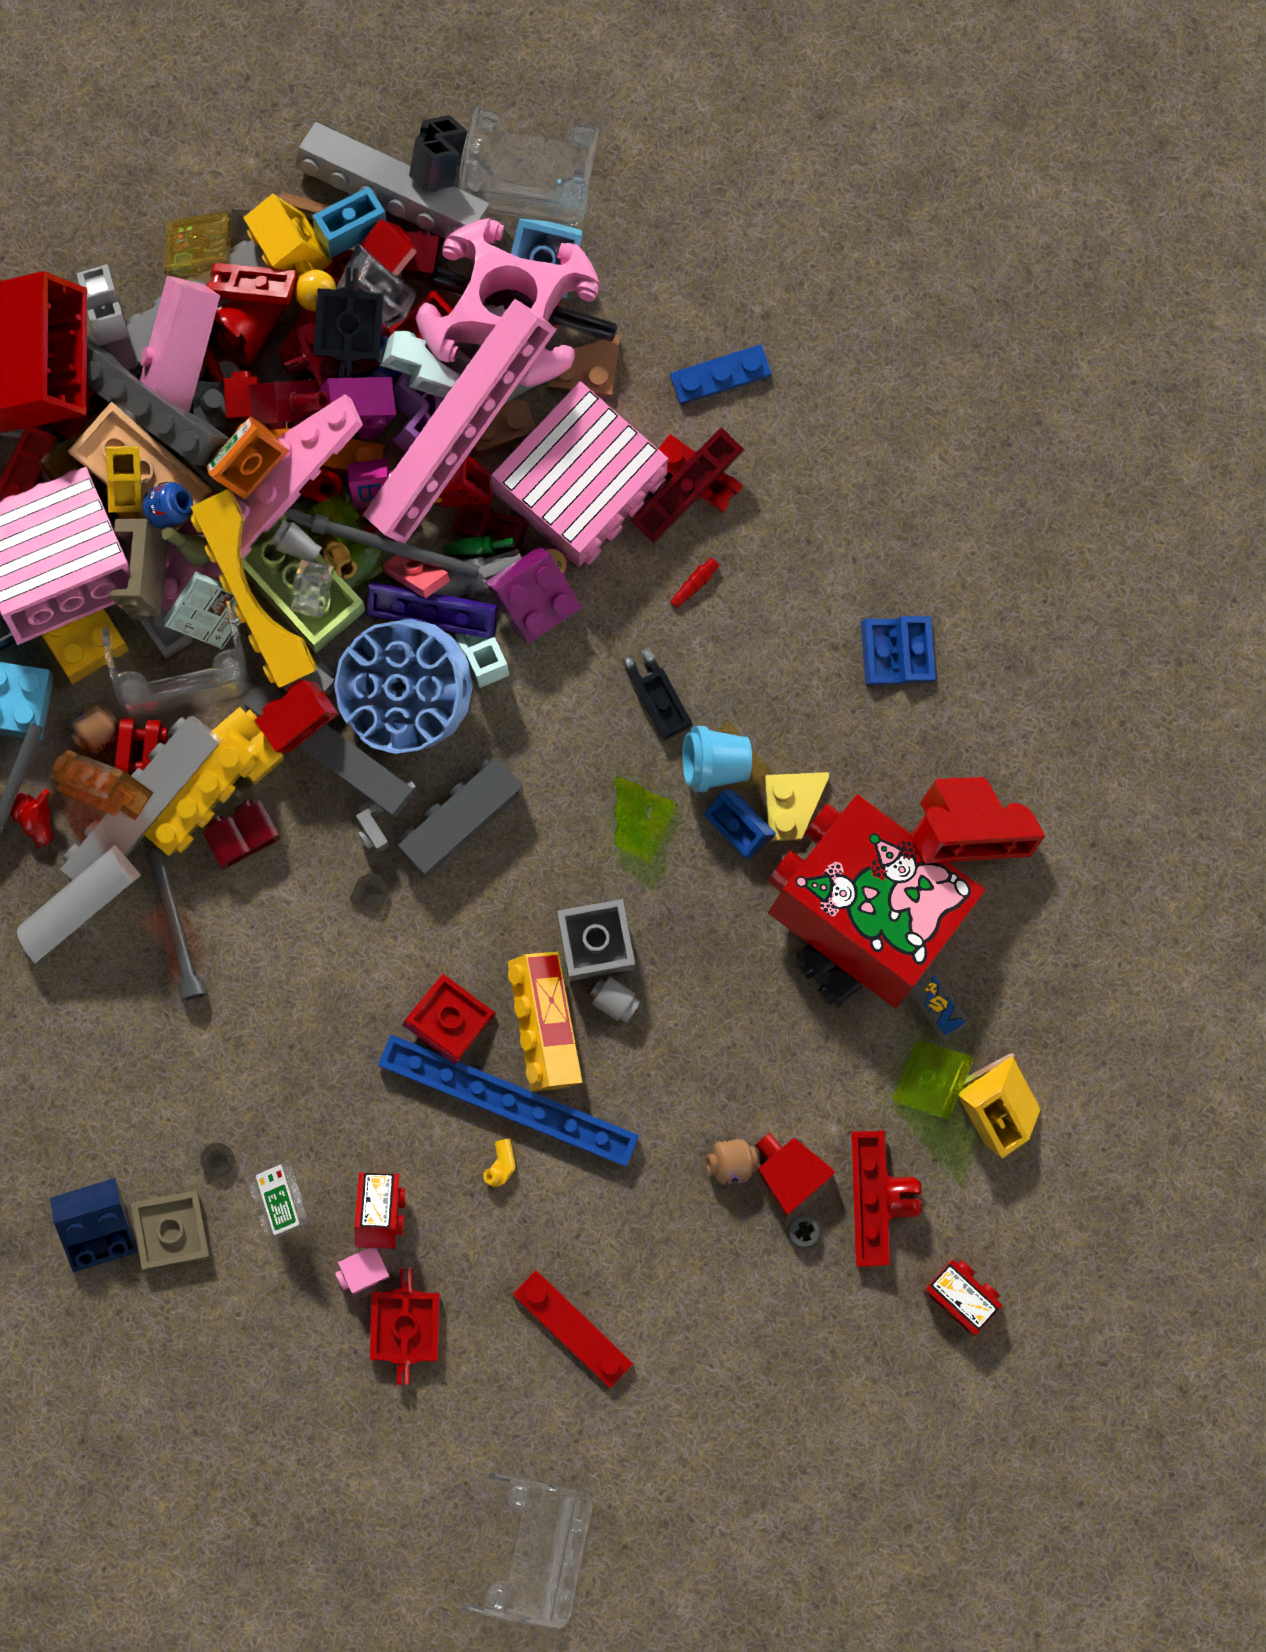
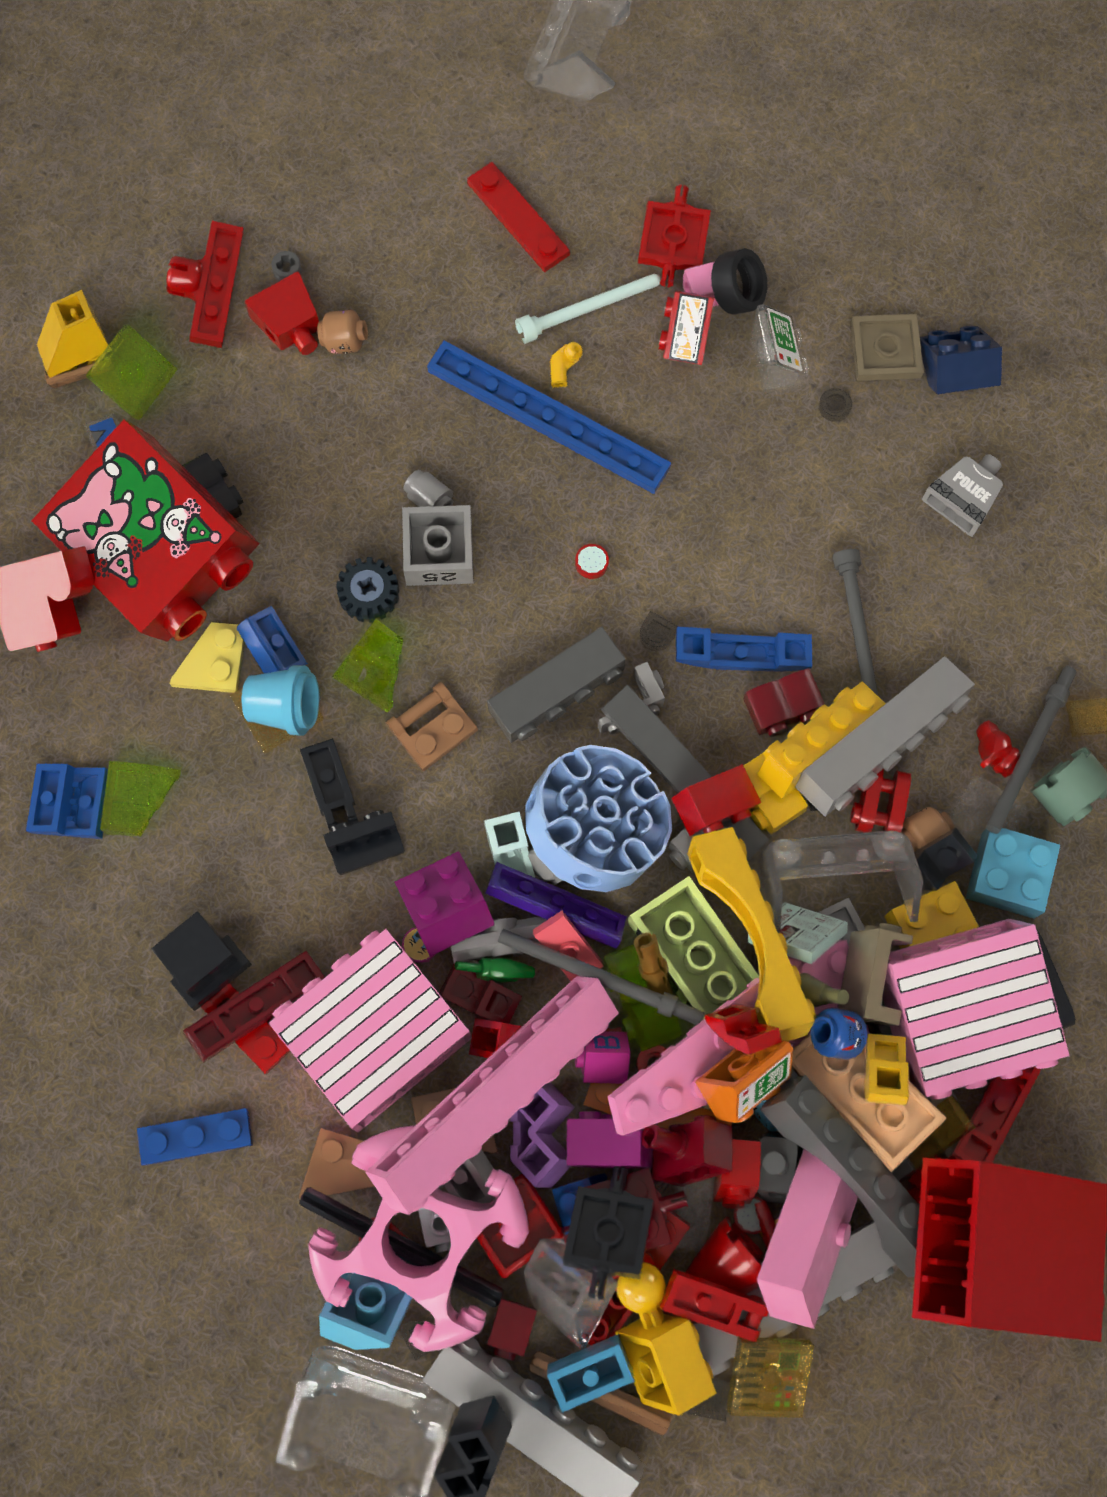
camera: 165 degrees left, 5 degrees down
(76, 903) = (959, 644): light grey brick -> none
(77, 1077) = (966, 492): none -> light grey torso
(85, 694) = (943, 858): none -> black slope
(99, 785) = (930, 748): clear orange brick -> none
(103, 305) = (888, 1314): light grey slope -> none
(253, 493) = (741, 1029): none -> red slope
(285, 882) = (743, 652): none -> blue slope
(295, 542) = (698, 986): light grey cone -> none
(311, 588) = (685, 926): clear brick -> none
(345, 1274) = (726, 286): none -> black tyre
(389, 246) = (545, 1332): red slope -> none
(410, 356) = (526, 1166): light aqua slope -> none
(444, 955) = (592, 561): none -> tile
(449, 1019) = (595, 497): red tile -> none
(539, 1199) = (533, 326): none -> light aqua piece
(544, 1021) = (501, 477): yellow brick -> none
(566, 760) = (438, 735): none -> medium nougat plate
(615, 645) = (364, 842): none -> black bracket
(654, 903) = (368, 602): none -> black wheel
(695, 582) = (268, 904): red animal -> none
(742, 516) = (200, 960): none -> black plate
(837, 661) = (133, 796): none -> clear neon green slope
(963, 1296) = (150, 188): brick -> none

